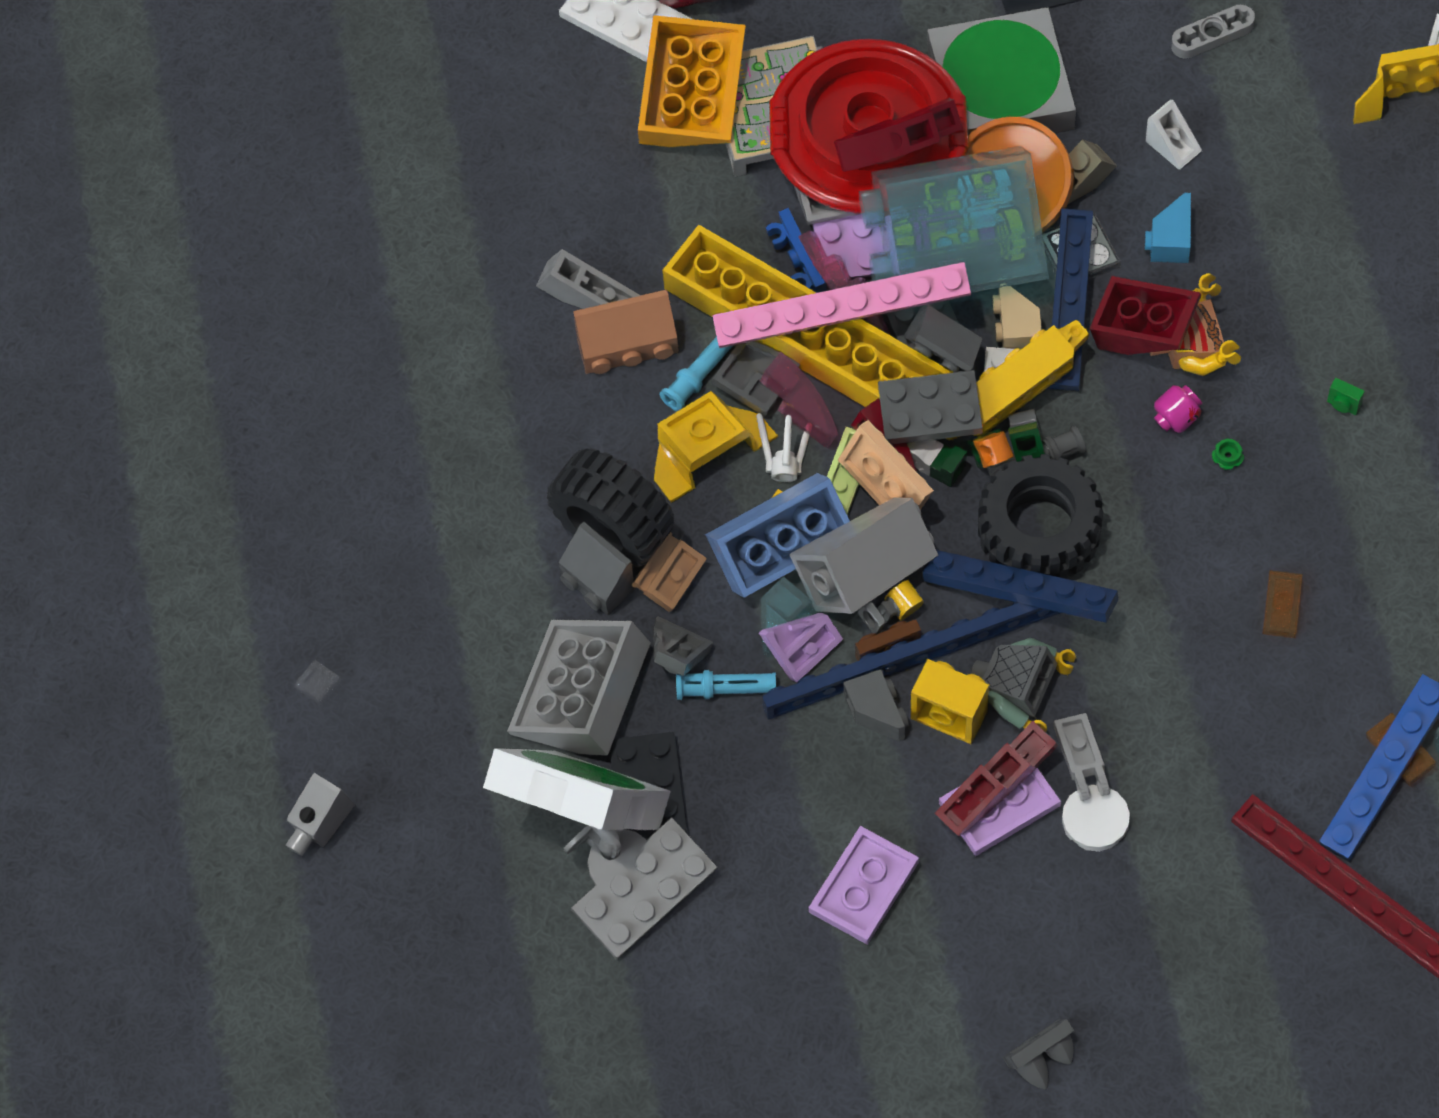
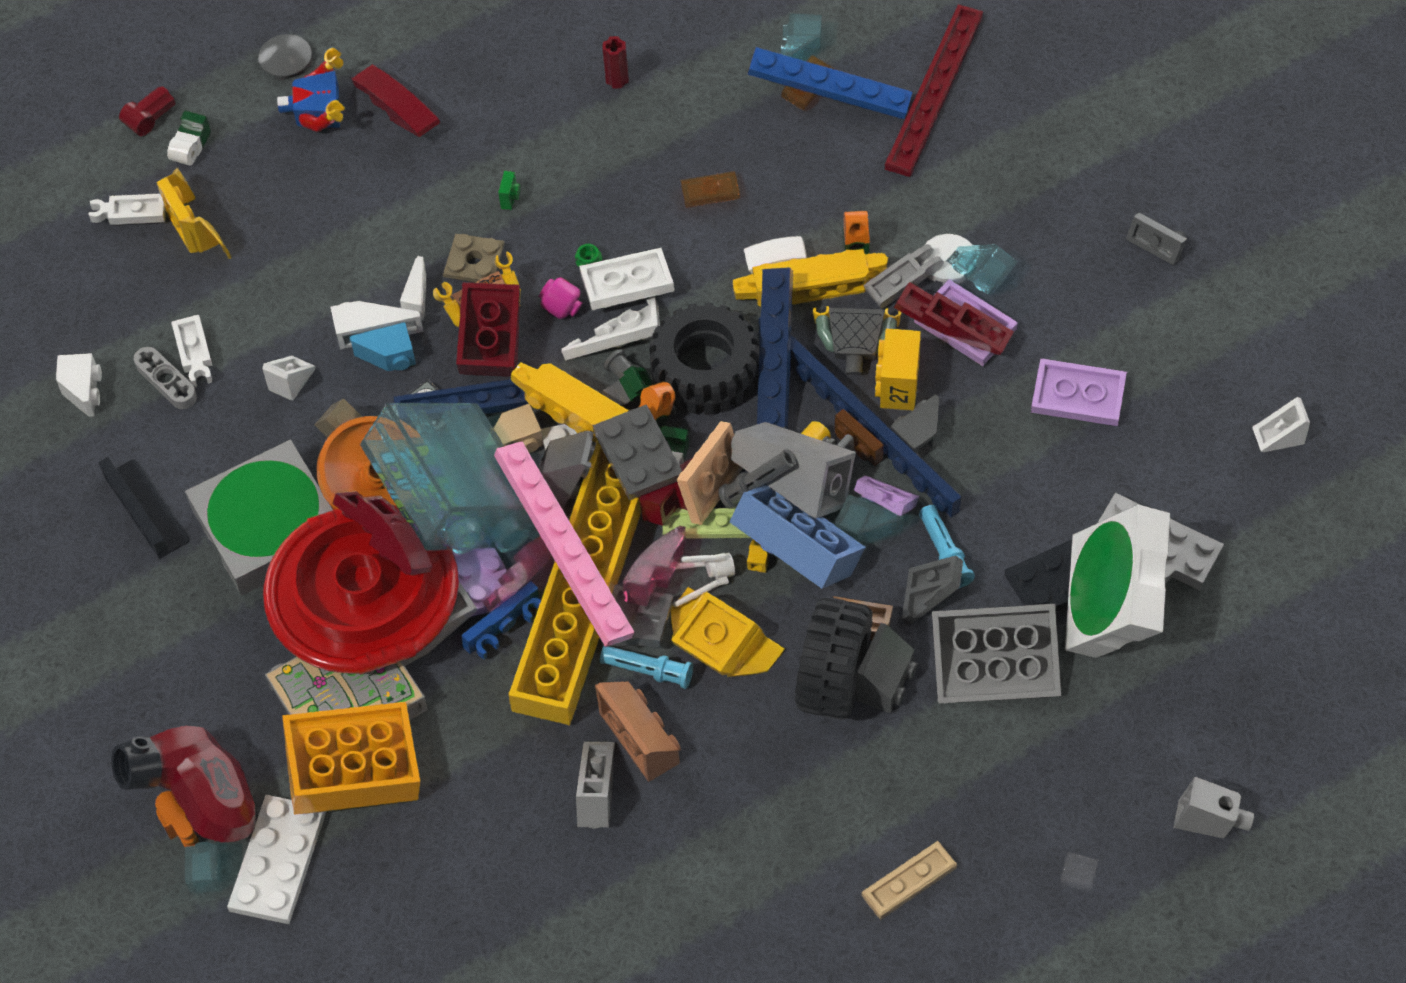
camera: 110 degrees left, 5 degrees down
(375, 530) = (909, 880): none -> tan tile
(733, 1077) = (1283, 428): none -> white slope
(857, 502) = (779, 464): none -> dark grey pin
(1063, 839) = (983, 265): none -> clear light blue slope
(1113, 666) = (818, 276): none -> yellow hinge
(1114, 459) = (618, 331): none -> white wing
(1155, 724) = (856, 230): none -> orange leg
(1161, 638) = (775, 251): none -> white slope
(1179, 479) = (626, 278): none -> white plate
(1213, 220) = (364, 317): none -> white slope
(1238, 60) = (193, 348): none -> white plate
(1240, 276) = (415, 289): none -> white slope
(1262, 326) = (469, 247): none -> dark tan piece

